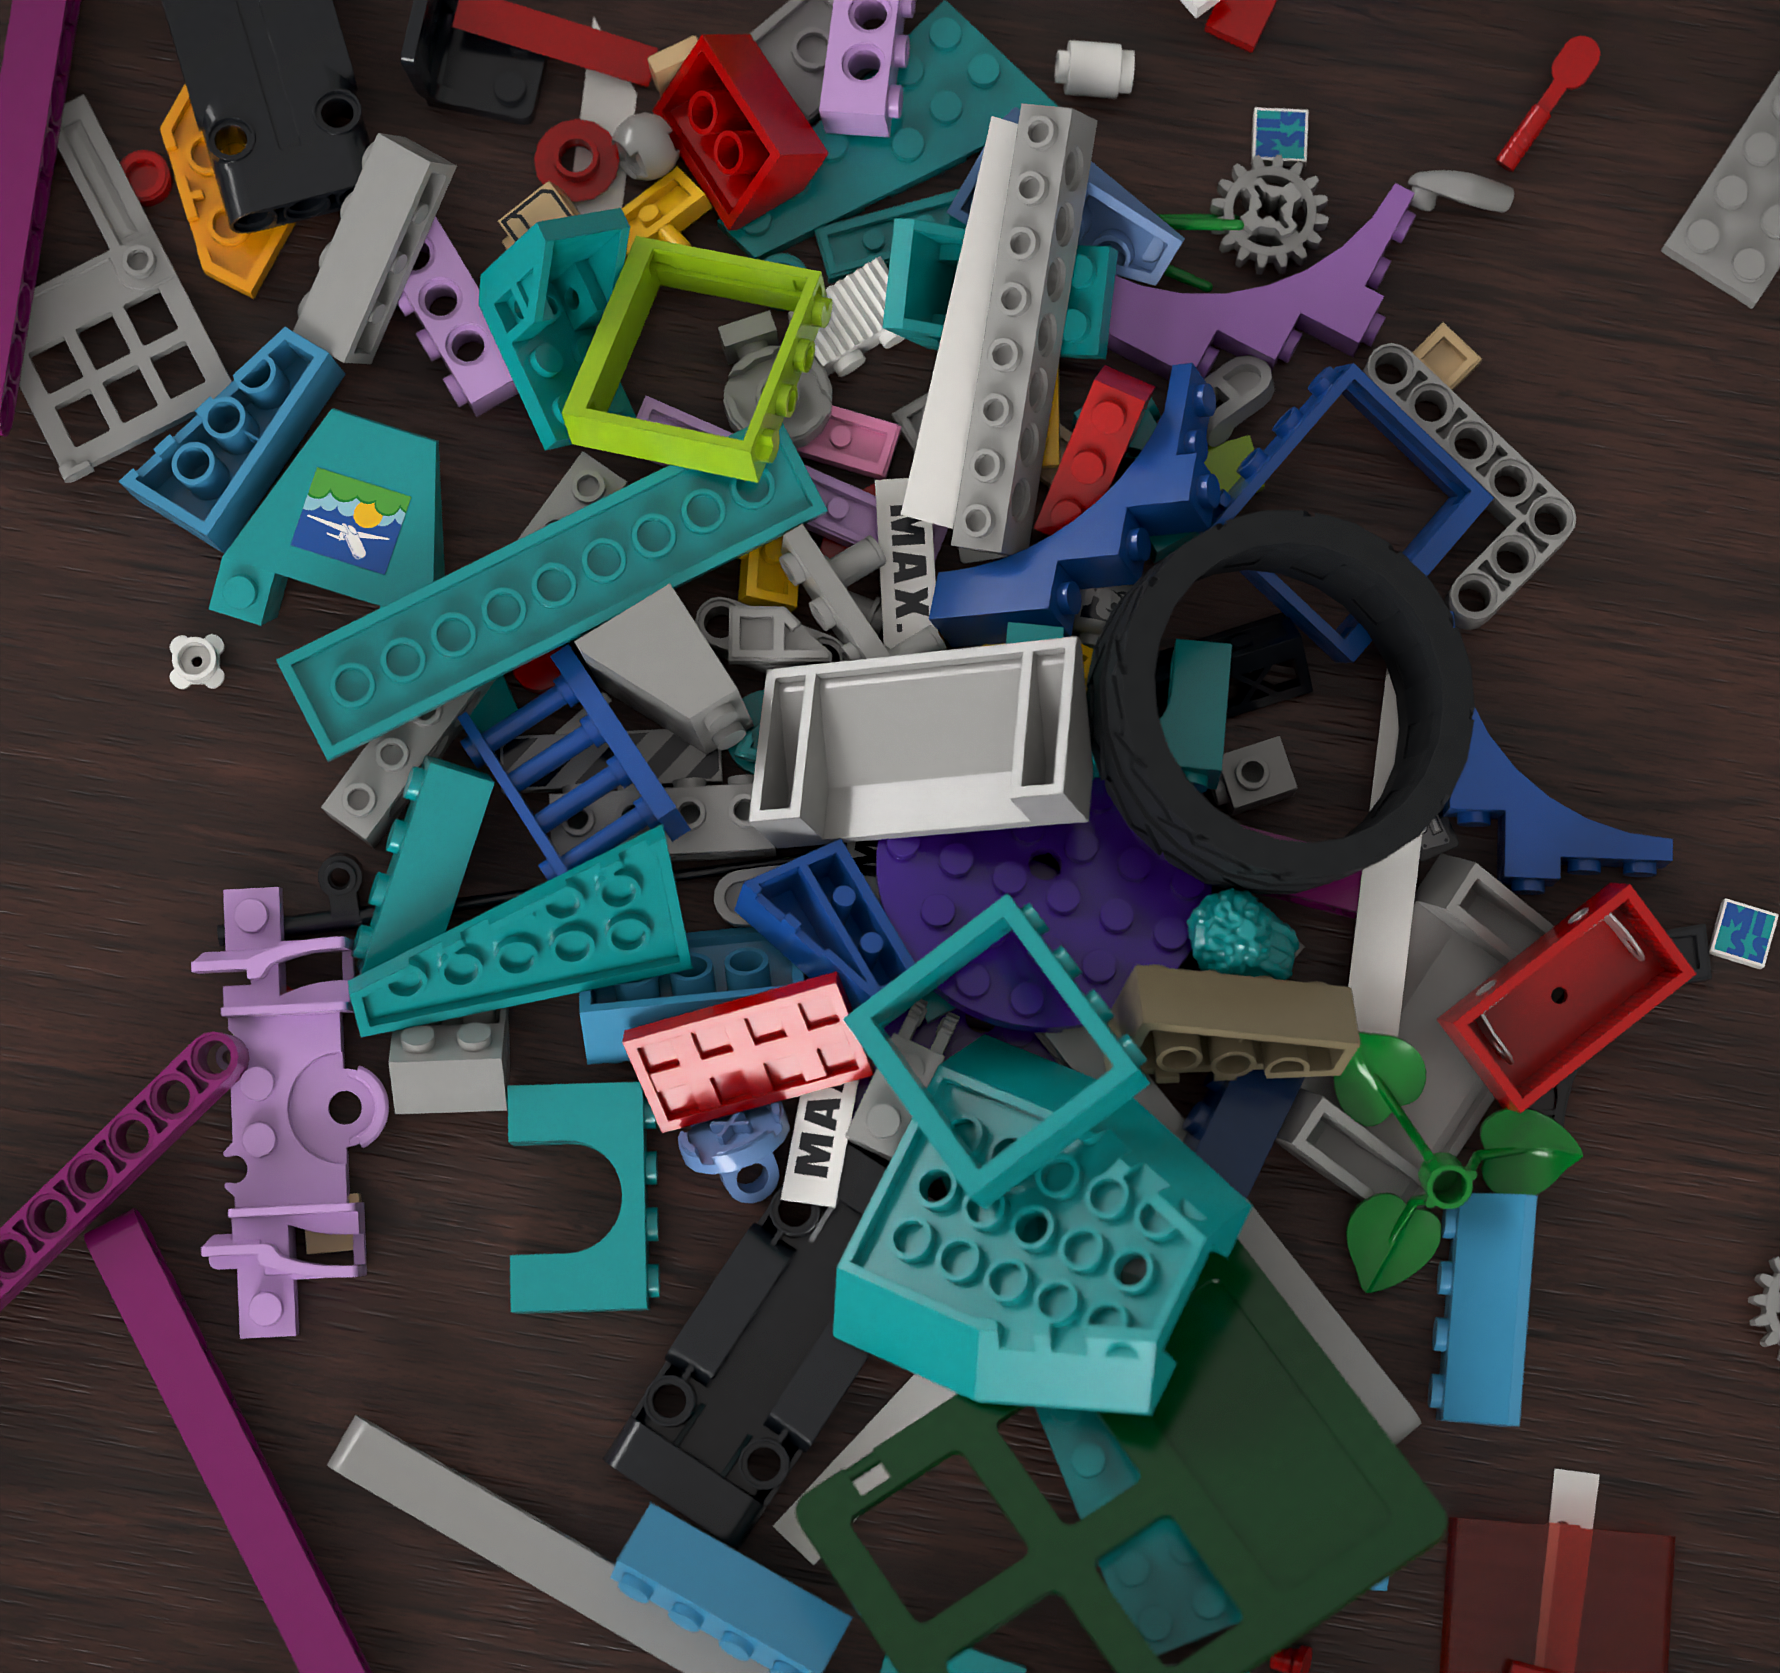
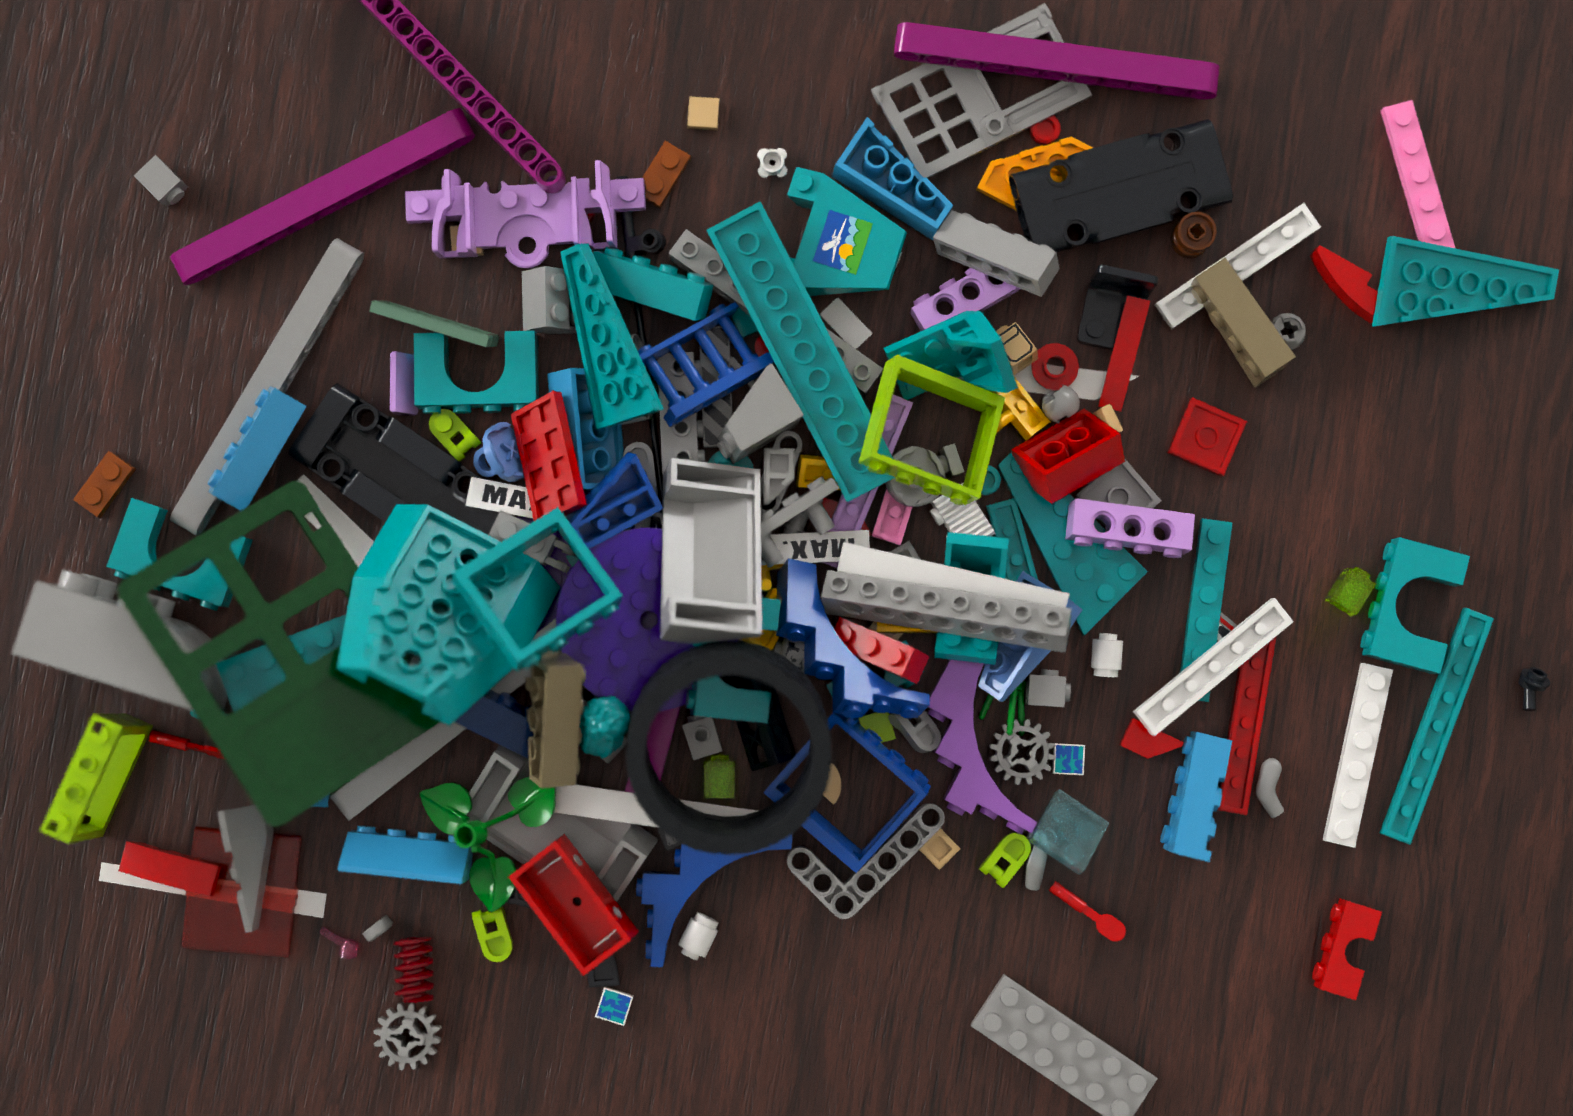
camera: 85 degrees right, 5 degrees up
(102, 787) = (703, 113): none -> tan tile
(211, 857) = (664, 173): none -> dark orange plate
(492, 1271) = (434, 323): none -> sand green tile
(495, 527) = (845, 323): none -> white sticker
(604, 1334) = (402, 384): none -> lavender slope
(683, 1256) = (446, 427): none -> lime plate
(1158, 170) = (1047, 689): none -> light grey brick
(1327, 745) = (719, 777): none -> clear neon green brick
(1410, 131) = (1069, 832): none -> clear light blue plate
(1440, 231) = (1014, 849): none -> lime plate
(1464, 1606) = (250, 842): none -> light grey wedge
(1613, 780) = (698, 936): none -> white brick
(1618, 1366) = (378, 928): none -> light grey tile
(1638, 1146) = (495, 944): none -> lime plate
(1653, 1423) = (348, 946): none -> clear pink hand
(1691, 1294) = (414, 969): none -> dark red piece

